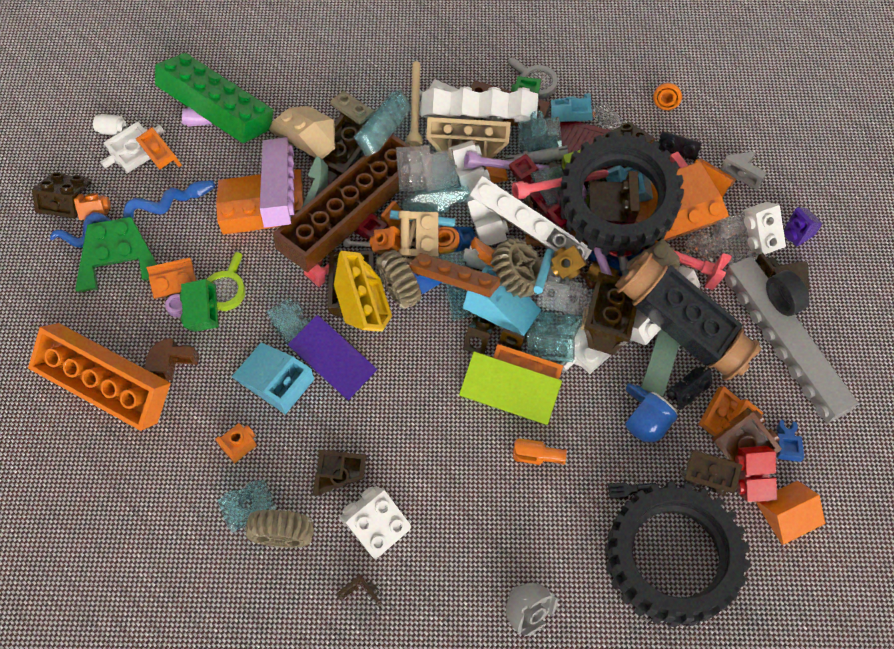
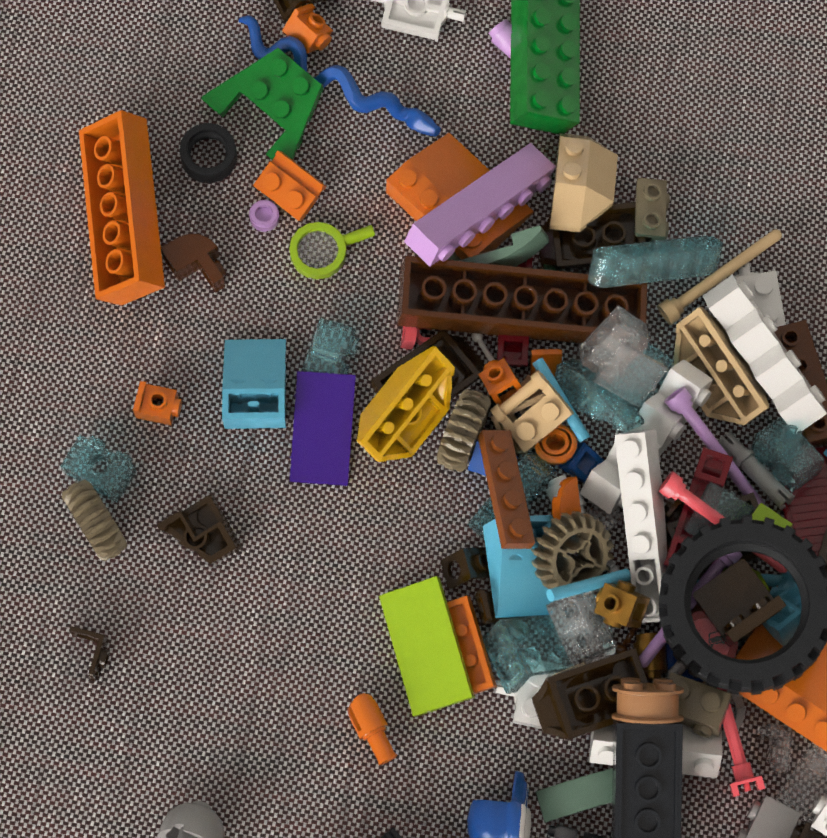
camera: 50 degrees right, 10 degrees up
(102, 297) = (202, 132): none -> black tyre
(157, 149) = (431, 38): orange panel -> none
(199, 305) = (276, 242): green brick -> none
(375, 521) = (174, 609): white bracket -> none
(497, 174) = (691, 438): orange slope -> none

